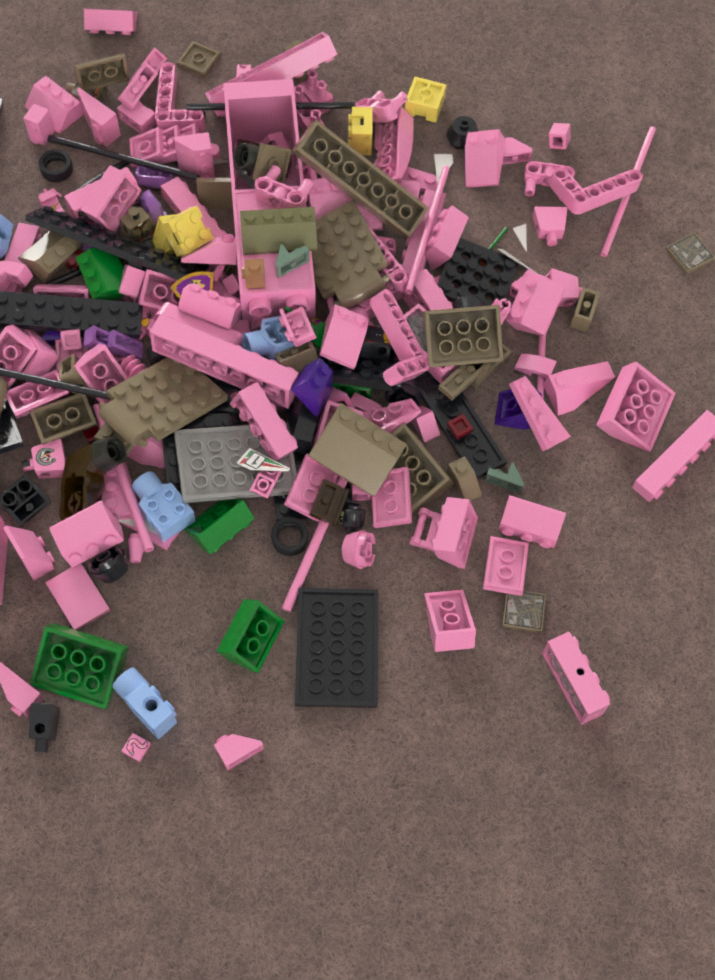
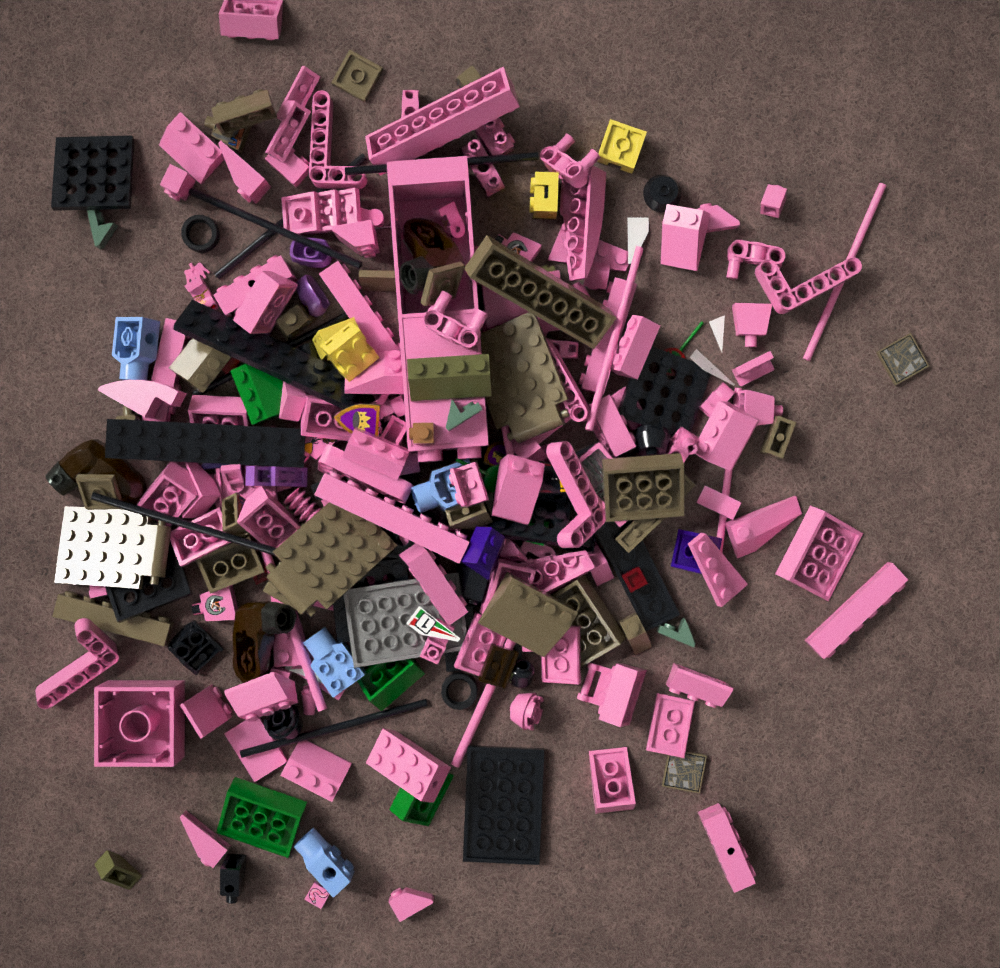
camera: 10 degrees right, 25 degrees up
(139, 615) = (316, 769): none -> bright pink slope
(158, 574) = (334, 728): none -> black piece
(237, 596) = (408, 765): none -> bright pink brick
(556, 257) = (754, 369): none -> bright pink bracket

